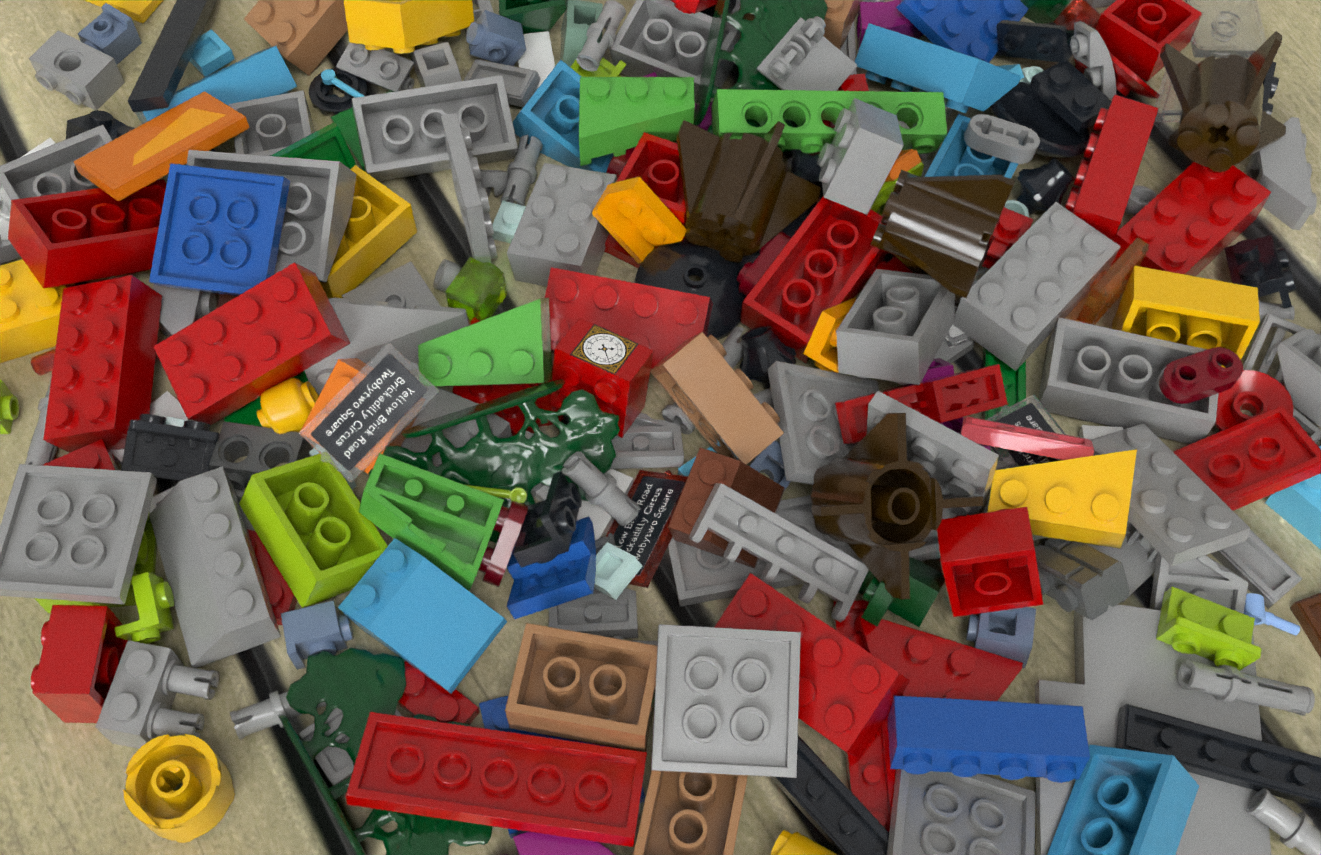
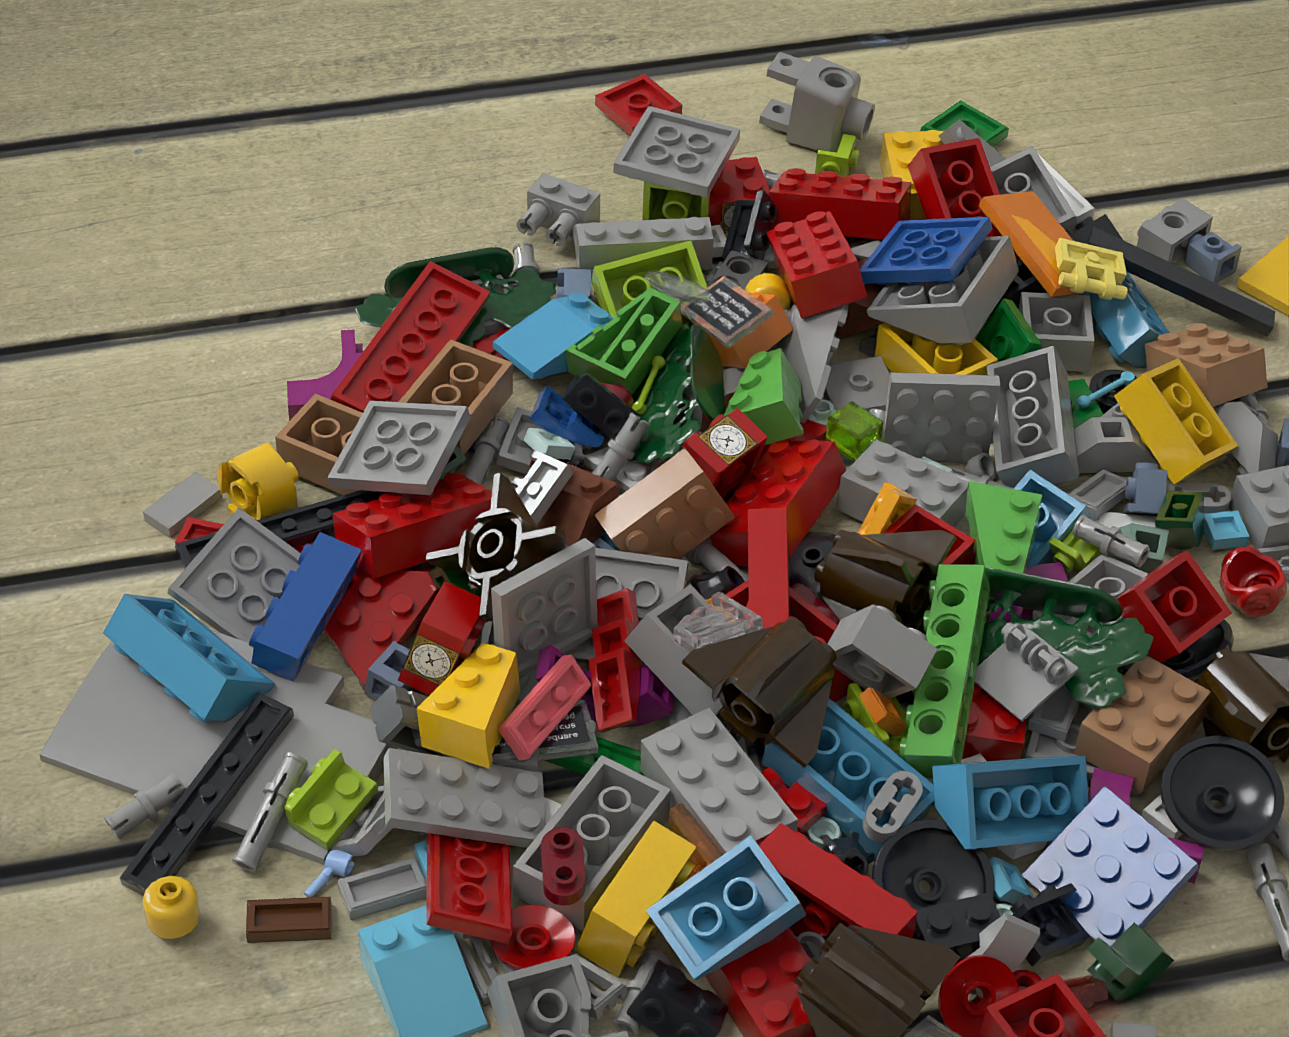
camera: 105 degrees right, 15 degrees down
(77, 661) = (591, 165): red brick -> none
(153, 604) = (623, 205): lime bracket -> none
(196, 805) = (486, 212): yellow brick -> none
(202, 89) = (1087, 261): none -> light yellow plate
(211, 53) = (1180, 313): medium azure plate -> none
(342, 470) = (678, 287): none -> clear dish
(789, 270) = (768, 565): none -> red slope
(895, 285) = (718, 623): none -> clear wing
(1193, 220) = (726, 910): none -> dark azure slope

